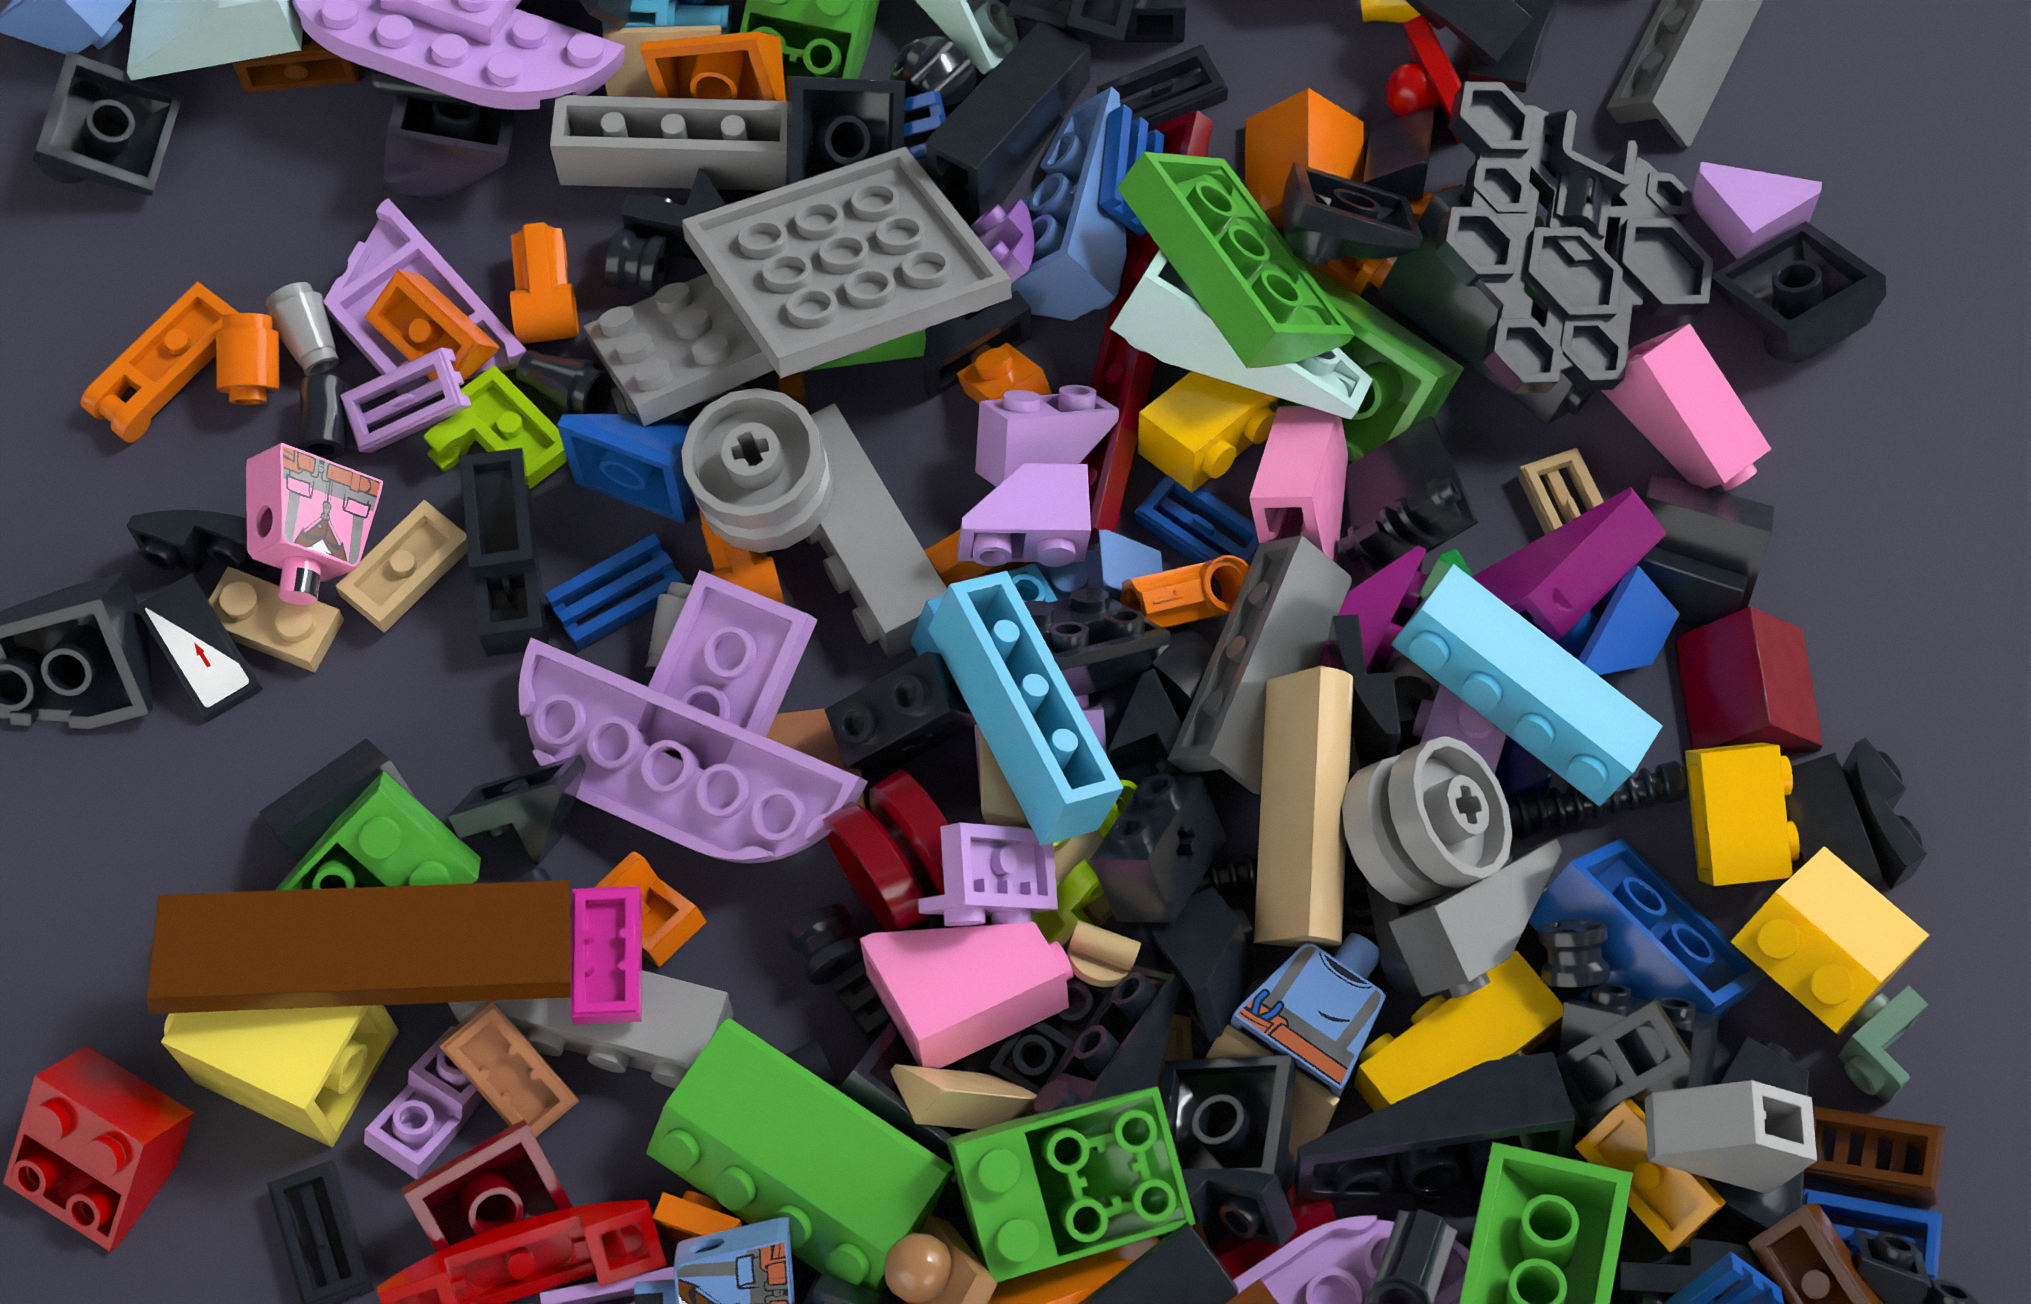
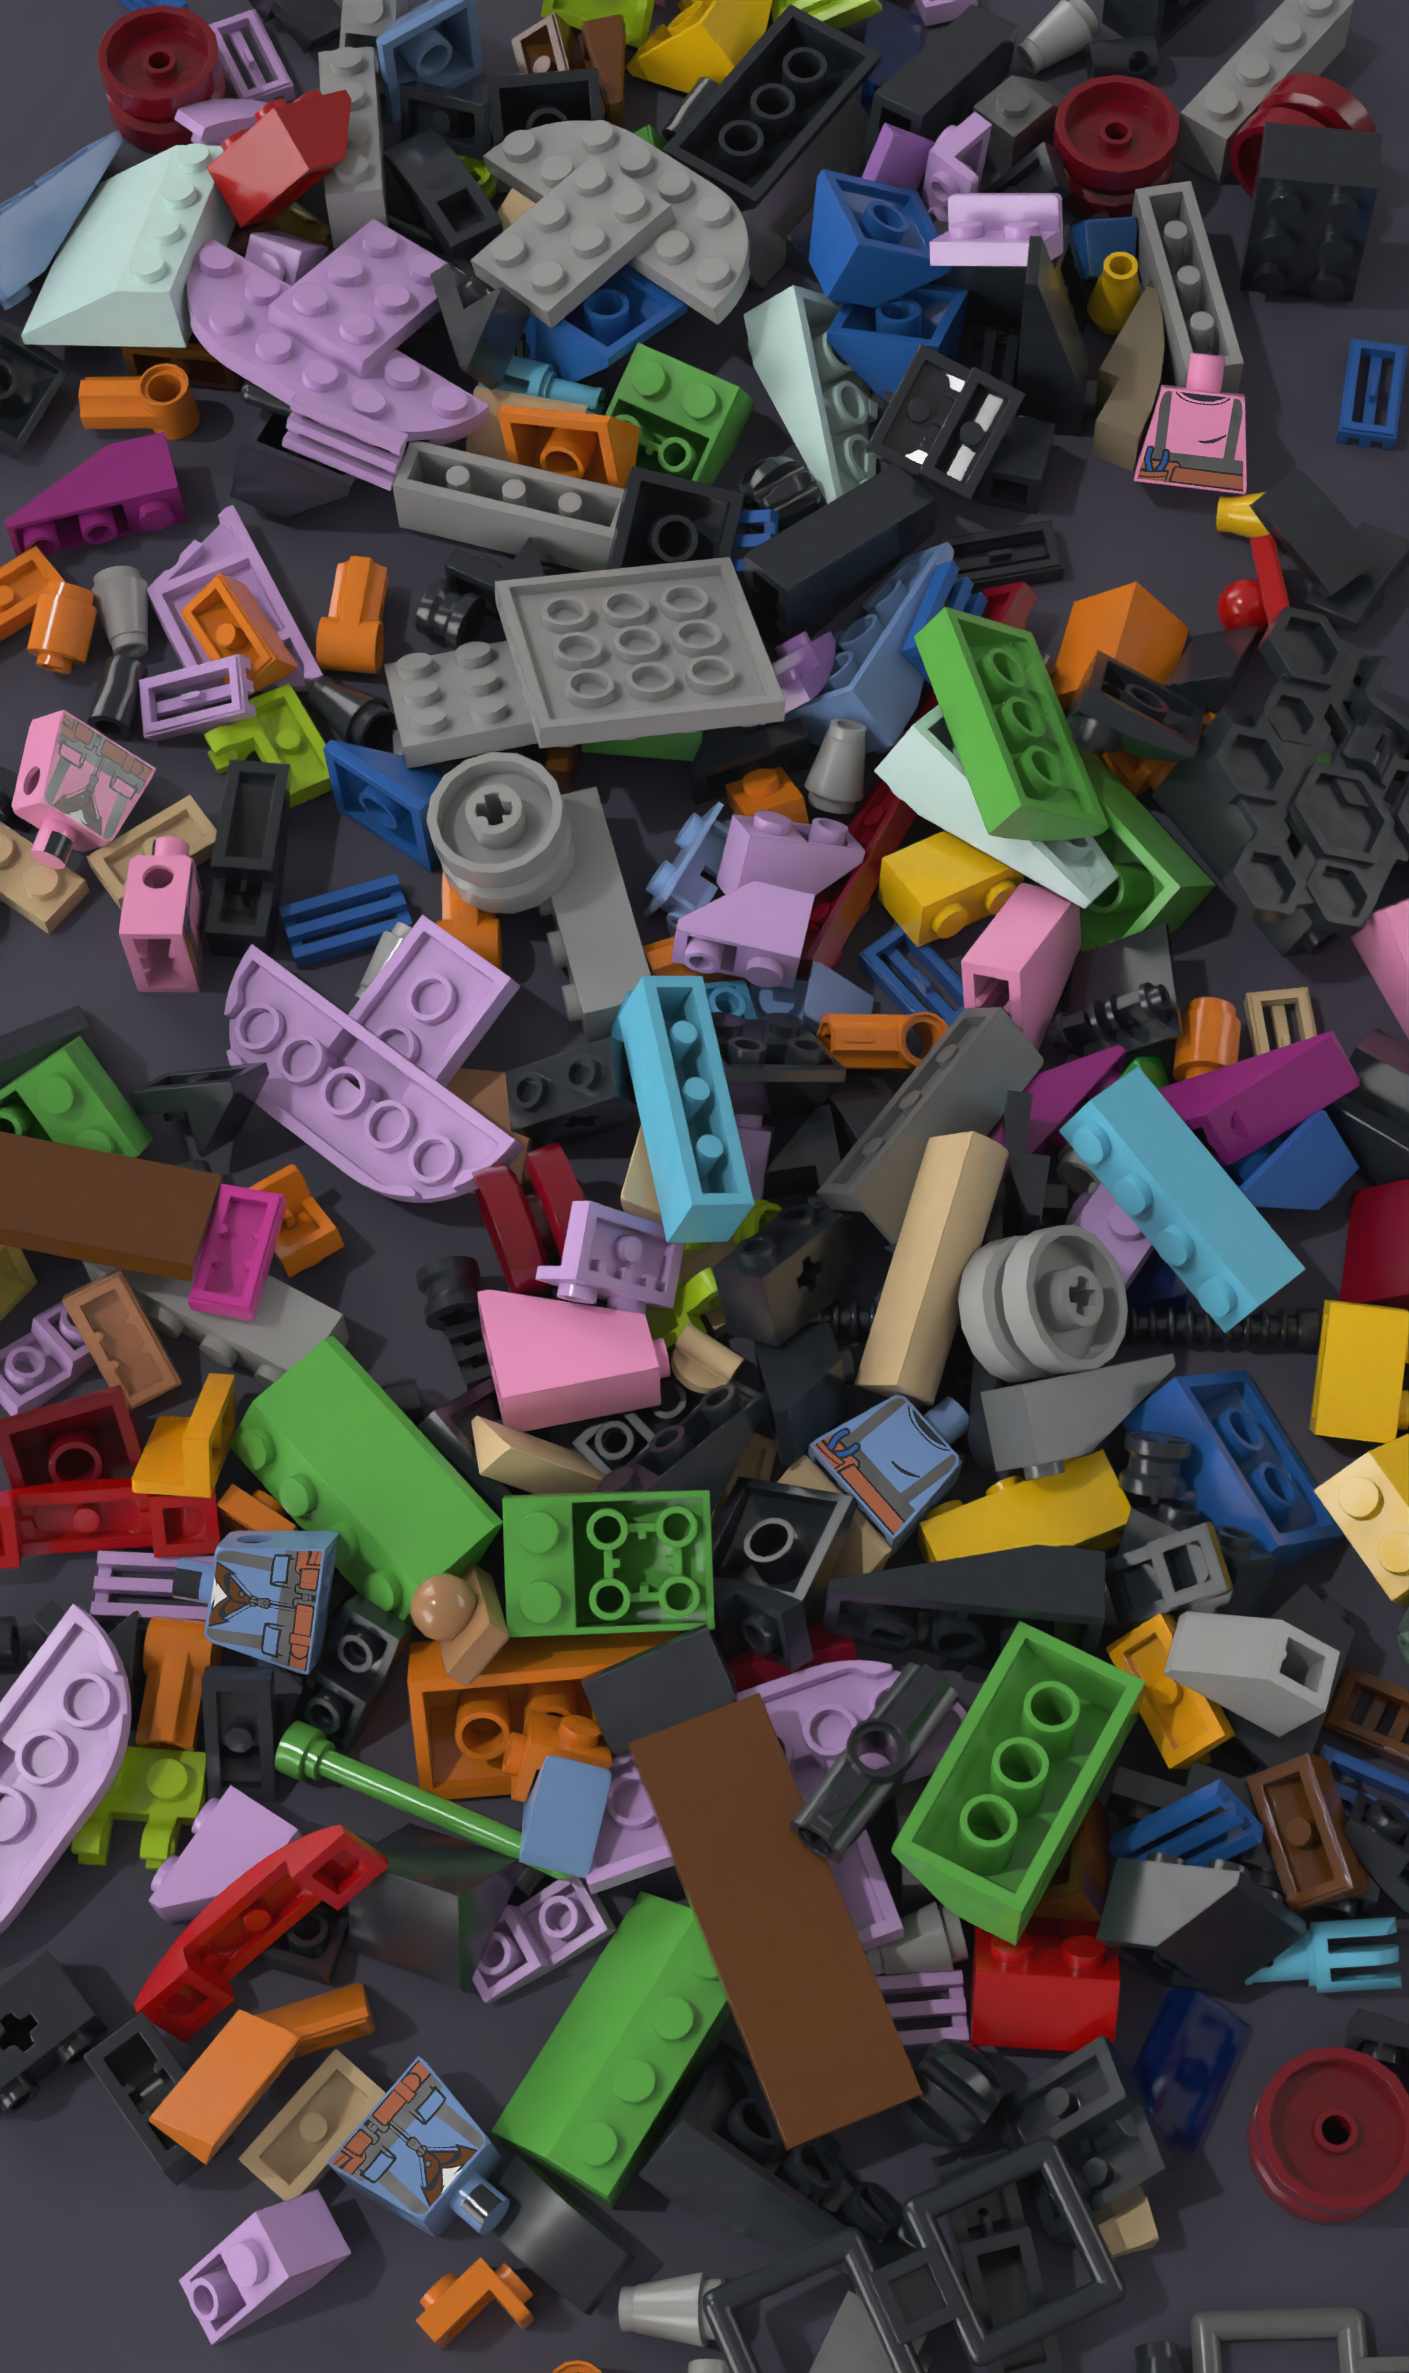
camera: 15 degrees right, 0 degrees up
(258, 215) = (109, 496): none -> magenta slope
(266, 114) = (155, 400): none -> orange piece
(434, 631) = (163, 919): none -> bright pink torso
(490, 117) = (342, 447): none -> lavender tile
(606, 1168) = (189, 1452): none -> light orange panel
(938, 482) = (678, 885): none -> light blue hinge
(1067, 333) = (838, 770): none -> light grey cone
(1502, 521) = (1208, 1038): none -> orange brick

